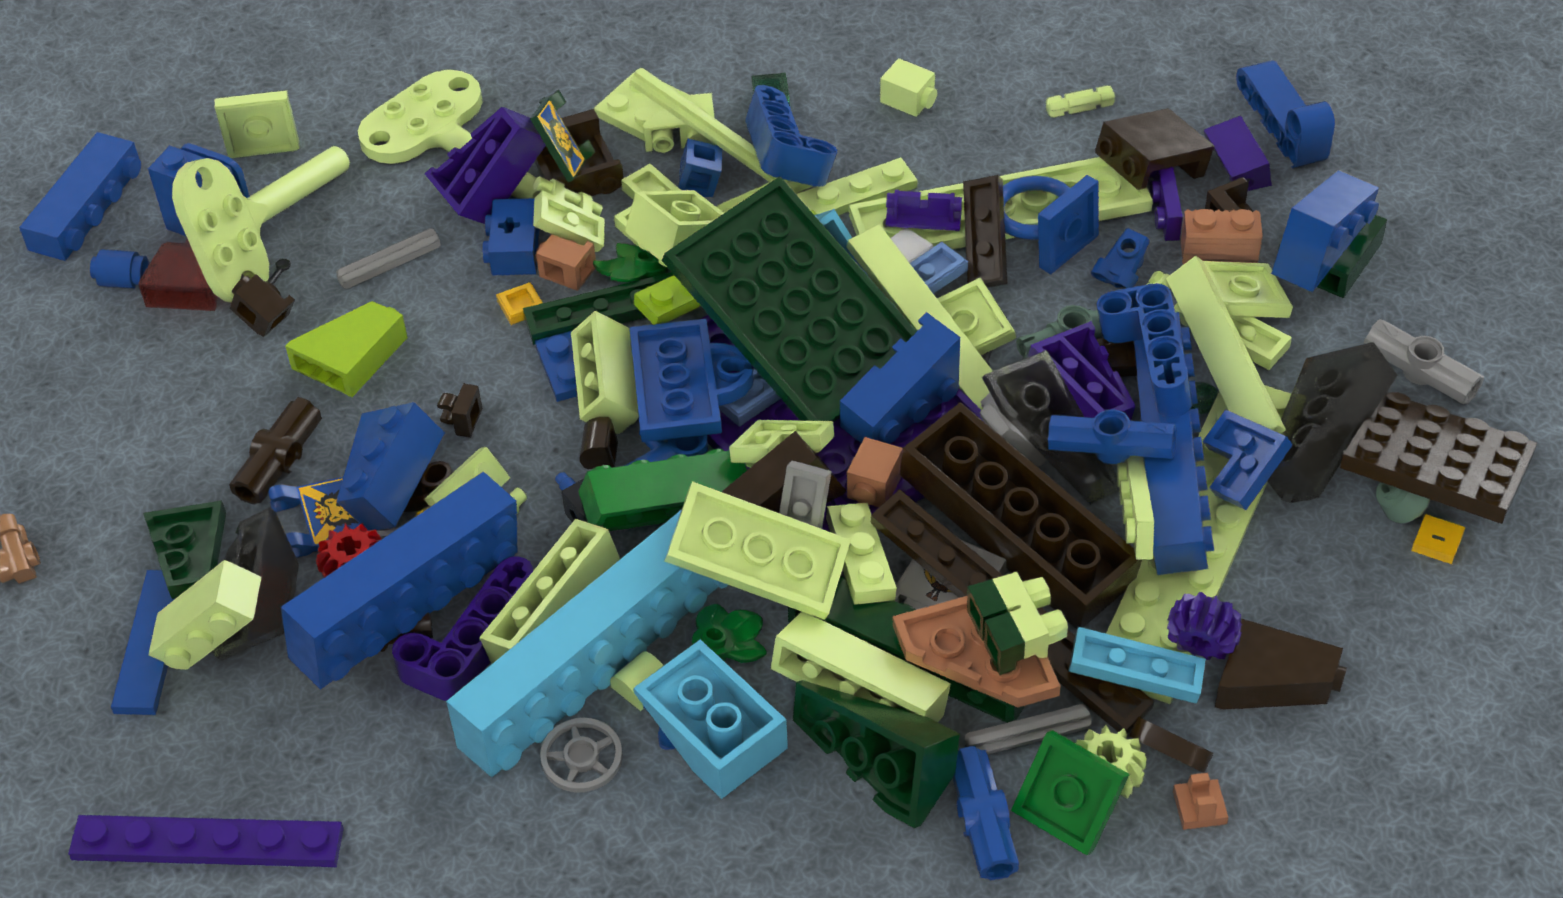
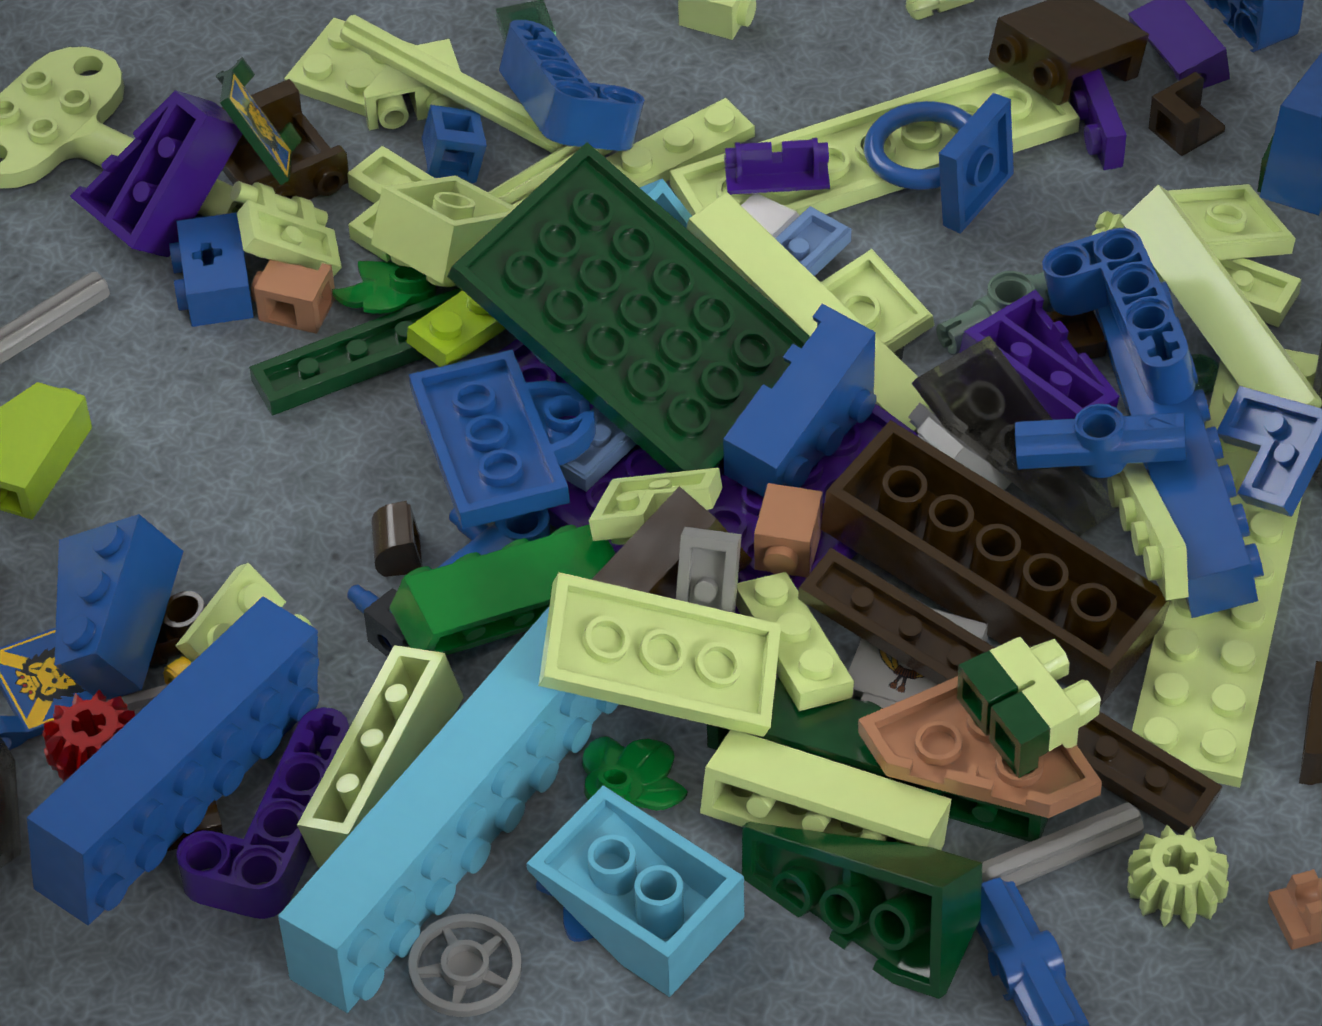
camera: 10 degrees left, 0 degrees up
(461, 410) = (194, 517): dark brown tile -> none
(516, 299) = (235, 356): yellow tile -> none
(558, 363) = (322, 439): blue plate -> none
(605, 371) = (386, 439): yellowish green brick -> none
(633, 674) = (516, 847): yellowish green brick -> none
(985, 230) = (865, 184): dark brown tile -> none
(1069, 792) = (1138, 921): green plate -> none
(1119, 266) = (1052, 211): blue plate -> none
(1137, 665) = (1193, 740): medium azure plate -> none
(1171, 744) = (1256, 839): dark brown beam -> none
(1204, 626) = (1271, 677): dark purple gear -> none
(1221, 235) = (1181, 154): nougat brick -> none

